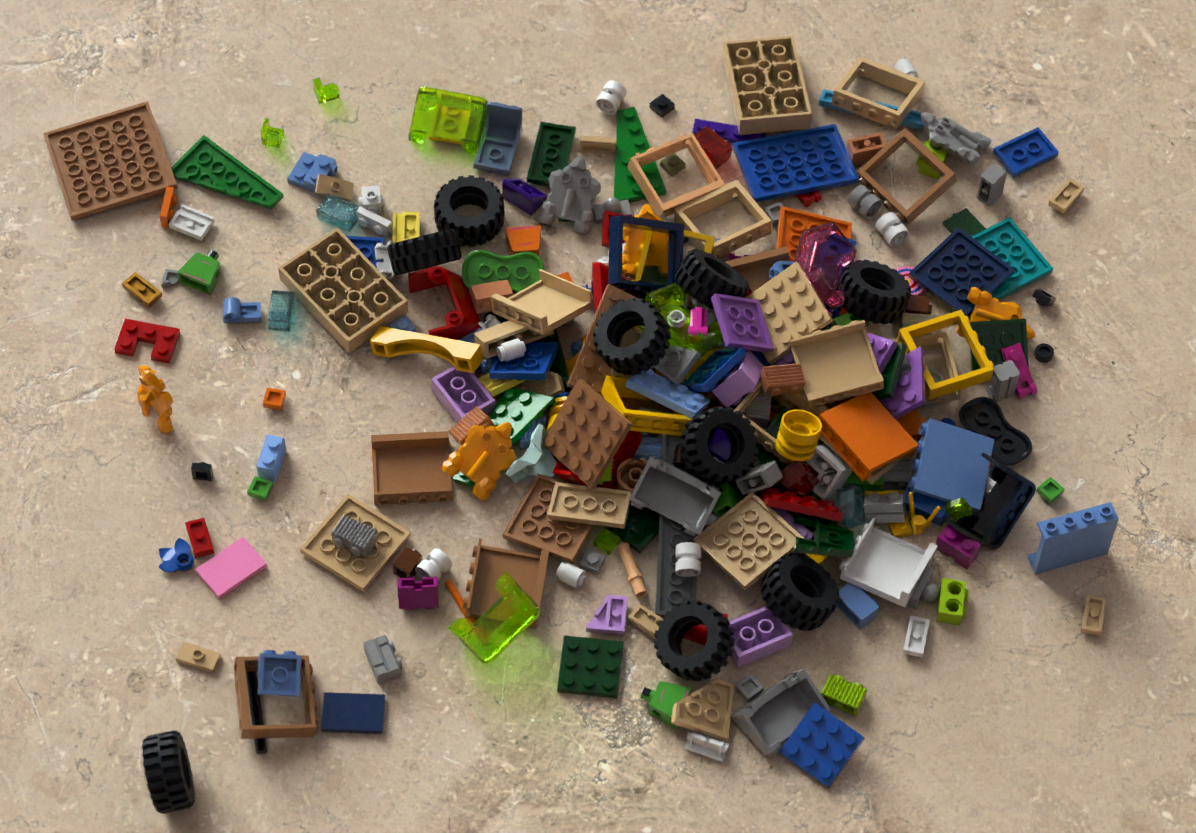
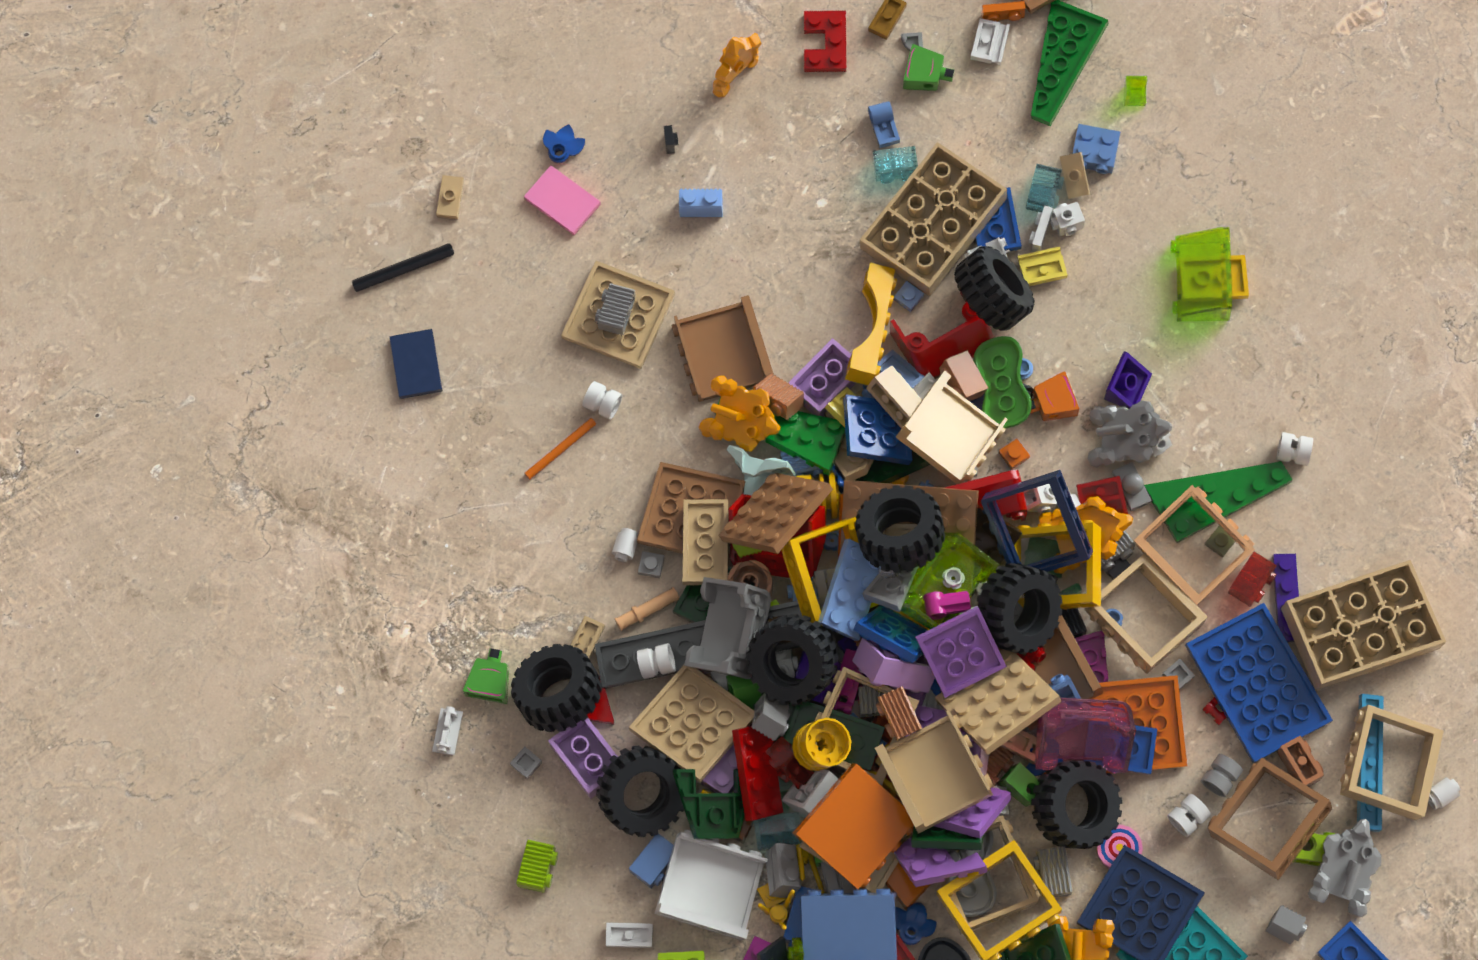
camera: 85 degrees right, 15 degrees up
(168, 772) = (292, 198): black tyre -> none
(199, 537) = (589, 159): red plate -> none
(249, 731) = (399, 248): medium nougat window -> none
(260, 488) = (663, 202): bright green plate -> none
(274, 398) = (779, 187): orange plate -> none
(279, 673) = (426, 274): medium blue plate -> none
(326, 92) = (1214, 132): clear neon green panel -> none
(382, 659) = (481, 376): light grey brick -> none
(406, 563) = (602, 372): reddish brown brick -> none
(418, 593) = (564, 391): magenta brick -> none
(470, 192) = (1080, 300): black tyre -> none
(490, 565) = (598, 479): medium nougat panel -> none
(499, 138) = (1191, 337): sand blue bracket -> none
(500, 623) = (551, 489): clear neon green windscreen -> none
(511, 350) = (879, 410): white brick -> none
(550, 152) = (1195, 399): dark green plate -> none
(590, 666) = (520, 590): dark green plate -> none
(597, 144) = (1222, 448): tan plate -> none
(606, 541) = (676, 575): clear neon green plate -> none
(610, 617) = (584, 598): lavender wing -> none
(662, 105) = (1306, 511): black plate -> none
(706, 710) = (484, 721): tan plate -> none
(778, 711) = (498, 798): light grey windscreen -> none
(822, 745) = (466, 852): blue plate -> none
(918, 305) = (1081, 865): reddish brown brick -> none
(924, 590) = (690, 934): light grey tile -> none
(965, 221) = (1225, 904): clear green piece -> none

